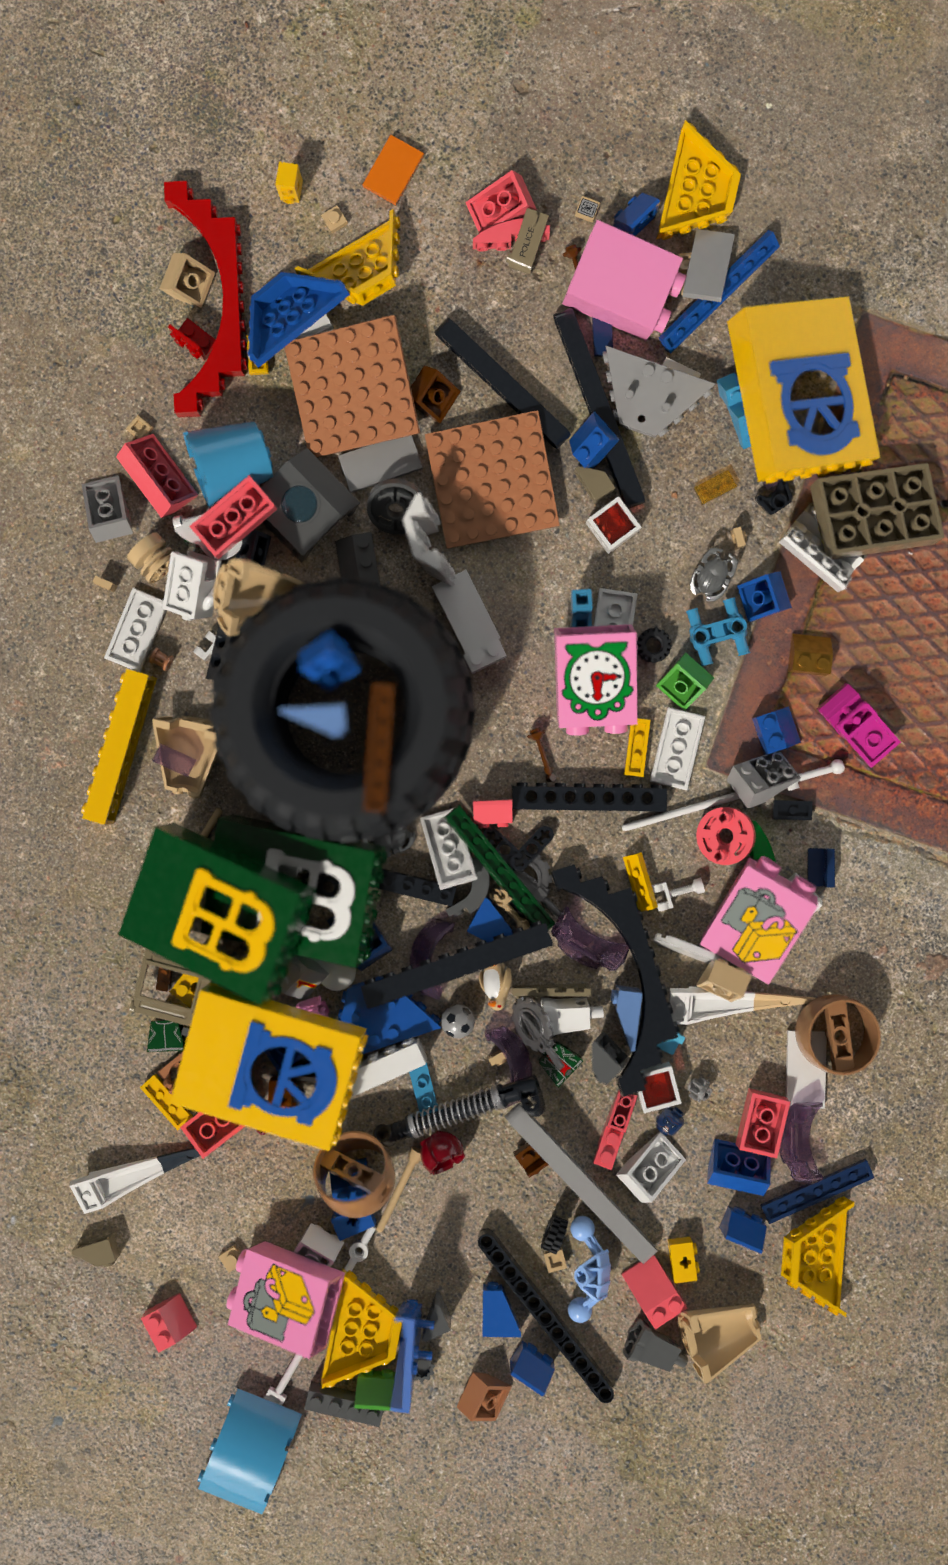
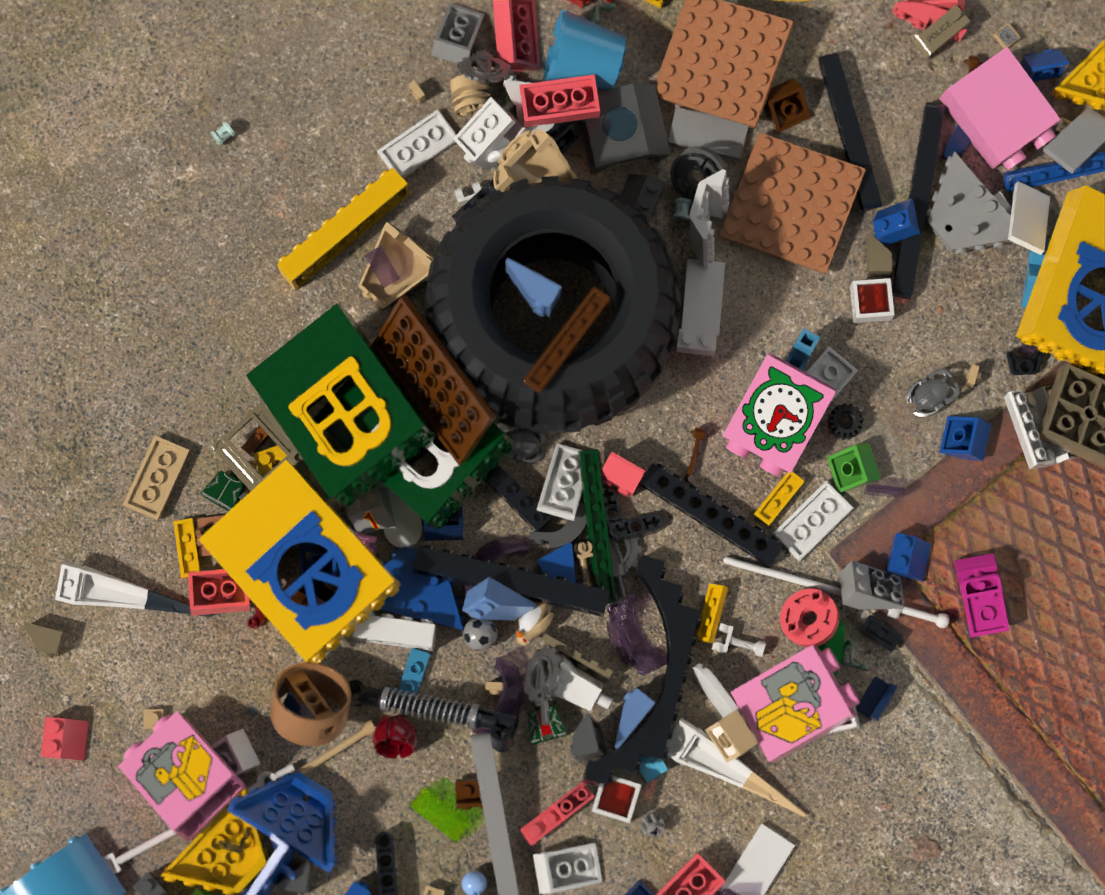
camera: 30 degrees right, 10 degrees down
(101, 1059) = (156, 478): none -> tan plate
(145, 523) = (483, 63): none -> flat silver bar
(161, 659) = (422, 175): nougat bush -> none
(223, 400) = (598, 7): none -> sand green piece
(282, 847) = (461, 387): none -> reddish brown piece
(328, 661) = (569, 248): blue slope -> none
(348, 1227) = (269, 753): blue brick -> none
(360, 1329) = (234, 848): none -> clear smoke piece
(400, 545) = (682, 209): none -> light aqua bush
(400, 1275) = (283, 812): none -> blue piece
(452, 992) = (495, 602): none -> medium blue slope
(519, 1189) = (440, 814): none -> clear neon green brick
(554, 1234) = (446, 871): black tyre -> none
(670, 1121) = (609, 836): dark blue head -> none
(706, 366) = (1029, 218): none -> white tile
(715, 487) = (978, 323): clear yellow tile -> none
(718, 631) = (907, 443): dark azure piece -> none
(723, 685) = (885, 491): none -> clear purple tile
(790, 849) = (853, 664): none -> sand green piece
(810, 655) = (975, 512): pearl gold slope -> none
(840, 1048) = (798, 863): medium nougat cylinder -> none

